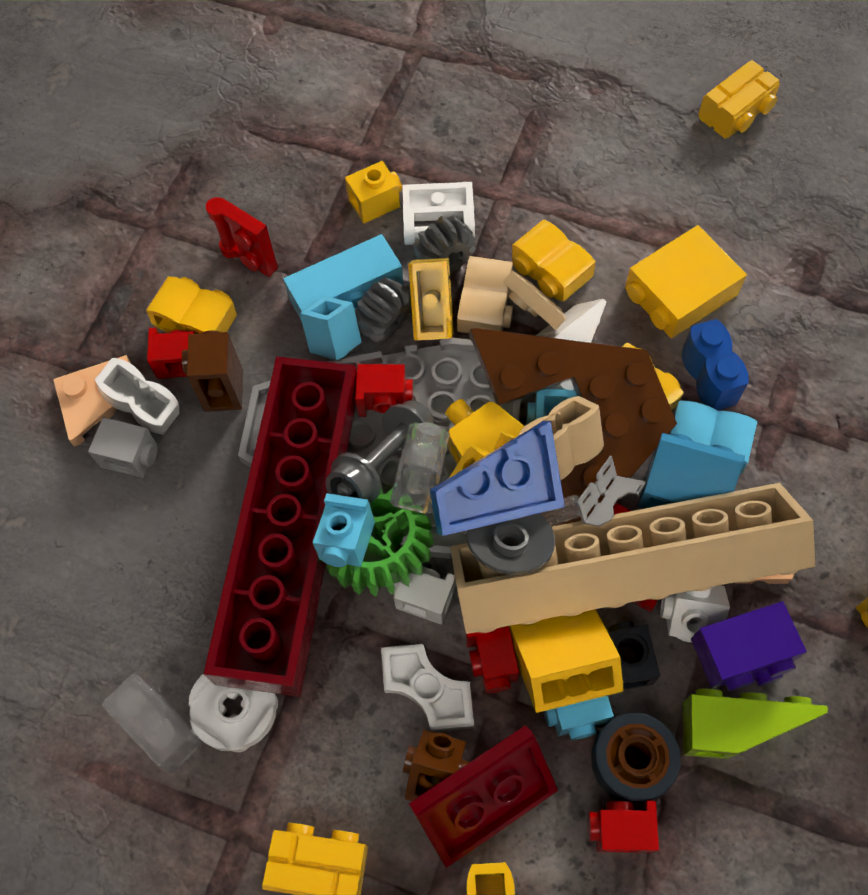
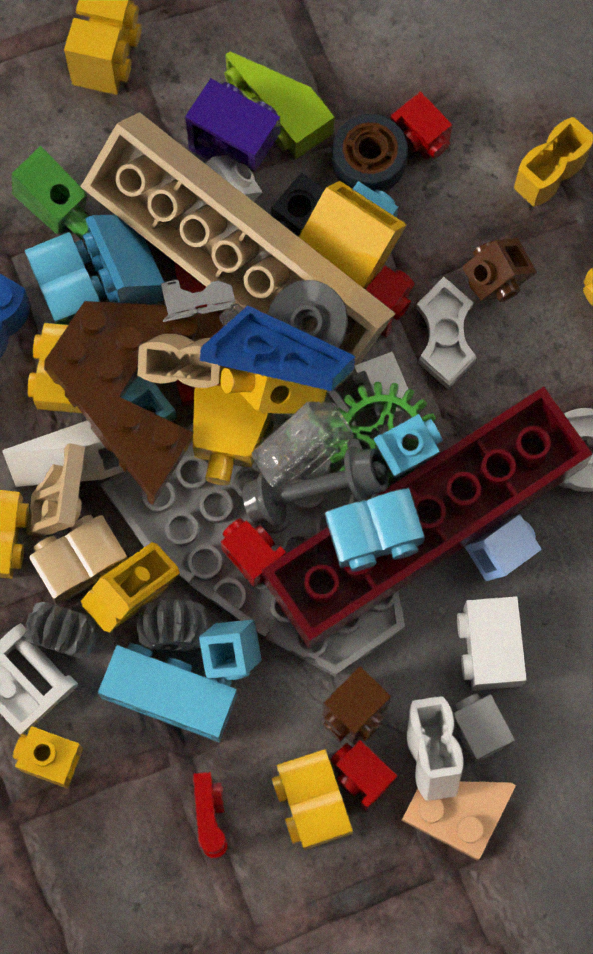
camera: 135 degrees left, 10 degrees up
(167, 504) = (493, 643): none -> white brick
(209, 567) = (504, 548): none -> light blue brick
(302, 449) = (375, 529): none -> medium azure brick
(484, 796) = (487, 221): dark red tile -> none
(803, 468) = (41, 183): none -> bright green torso

